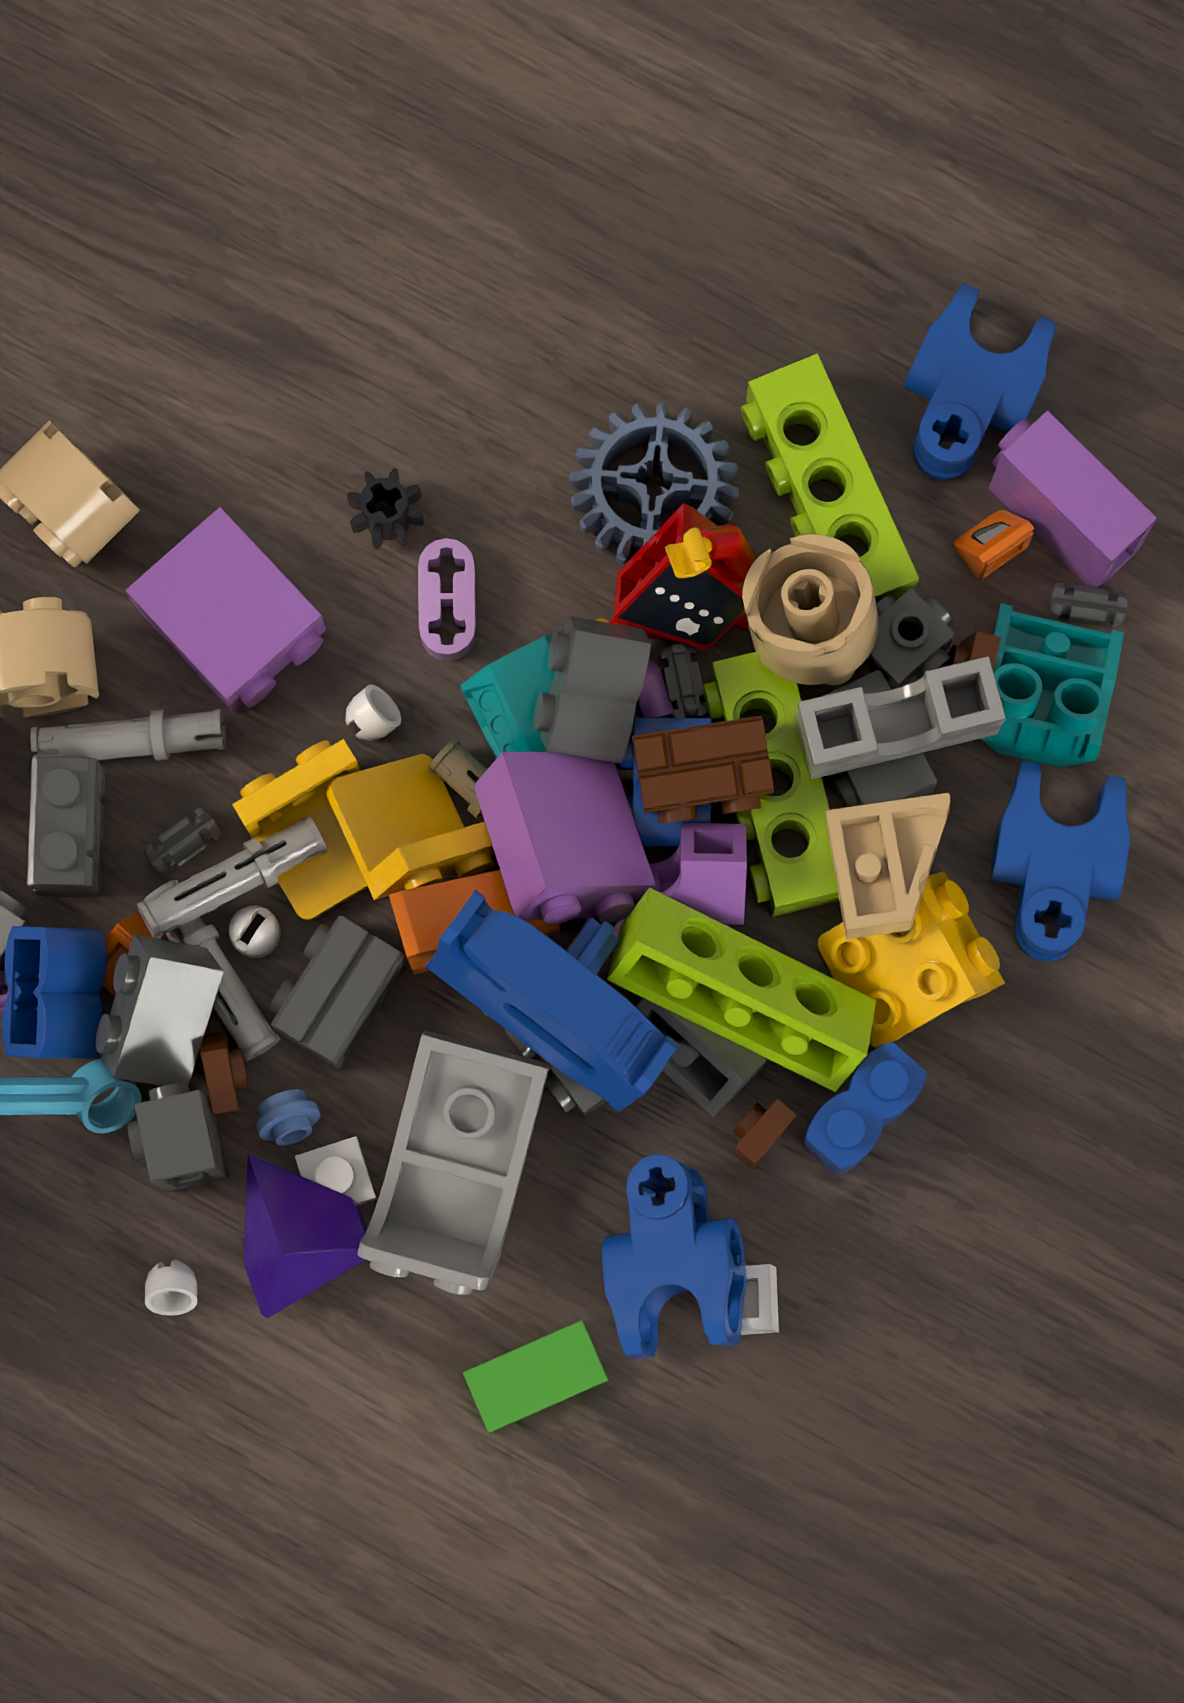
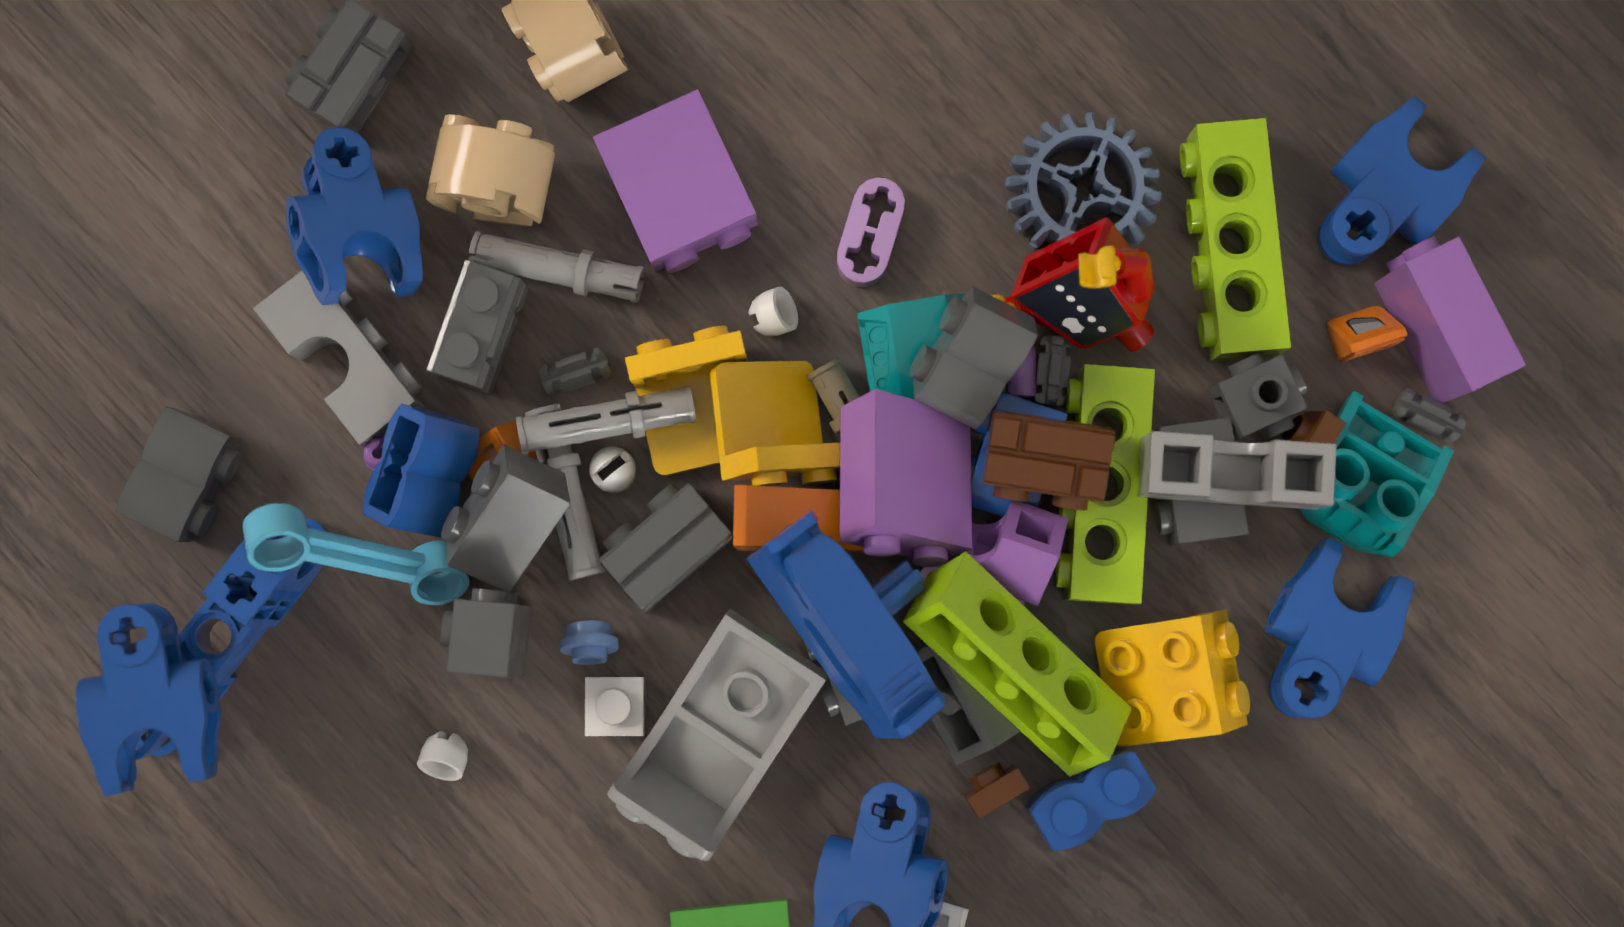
camera: 20 degrees right, 5 degrees up
(223, 1071) = (545, 586): reddish brown plate -> none
(295, 1235) = (564, 748): dark purple slope -> none
(394, 495) = (853, 125): black gear -> none
(811, 610) = (1159, 341): tan brick -> none
(884, 860) = (1180, 591): tan wing -> none

